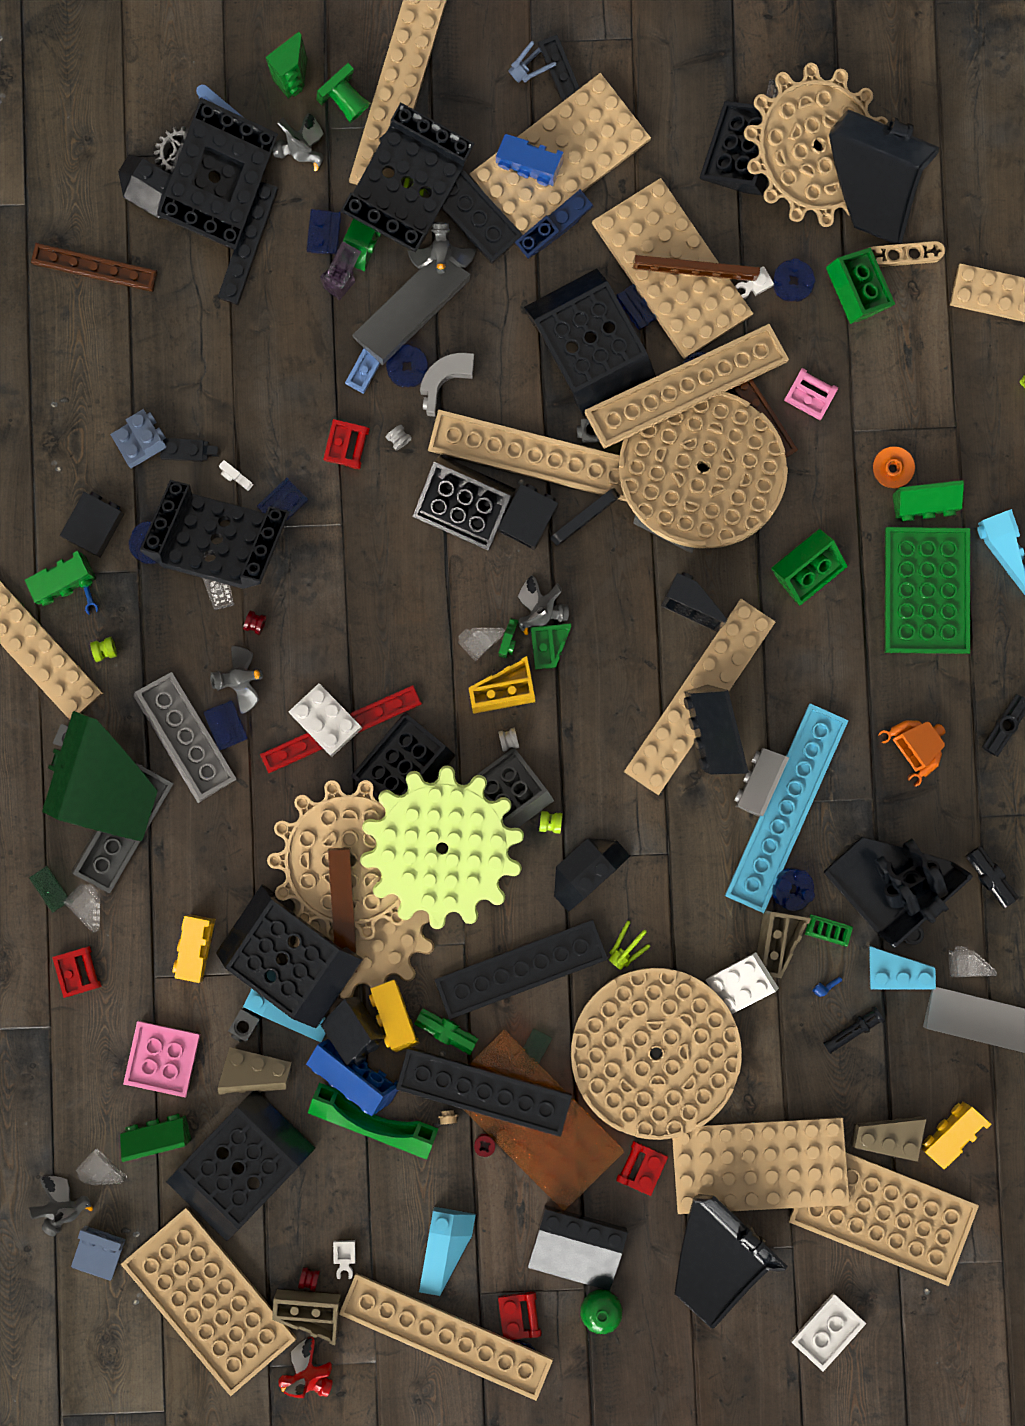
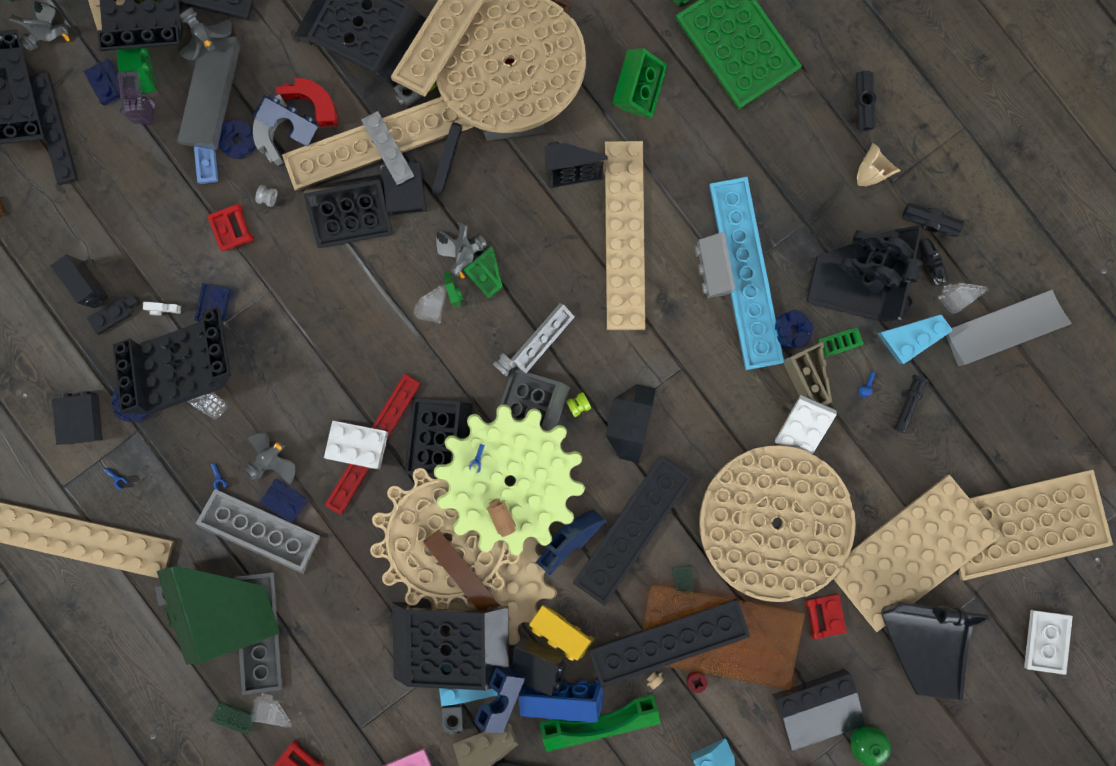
camera: 35 degrees left, 0 degrees up
(60, 579) = (81, 476): green wedge -> none
(103, 649) = (150, 507): lime wheel -> none
(139, 438) = (69, 330): sand blue plate -> none
(179, 402) = (79, 281): none -> black brick
(181, 662) = (218, 477): none -> blue hand
(193, 948) = (374, 686): yellow wedge -> none
(254, 622) = (252, 408): dark red wheel -> none
(287, 1047) = (495, 715): none -> dark blue arch
(412, 875) = (501, 517): none -> medium nougat head
(427, 808) = (477, 458): none -> blue hand
(446, 1031) = (608, 616): green piece -> none
(456, 367) = (270, 110): none -> arch
(459, 935) = (568, 537): none -> dark blue slope
(505, 689) = (475, 329): yellow wedge -> none
(507, 391) = (306, 89): none -> red arch
(538, 470) = (387, 148): none -> light grey plate
(559, 739) = (542, 338): none -> light grey plate
(620, 957) = (701, 468): lime plant -> none
(715, 730) = (655, 249): black slope -> none
(891, 1137) = (994, 464): dark tan wedge -> none
(919, 744) = (812, 158): orange torso -> none
(954, 1134) = (1039, 428): yellow wedge -> none
(965, 915) = (933, 262): none -> black hinge
(972, 792) = (874, 168): none -> tan helmet

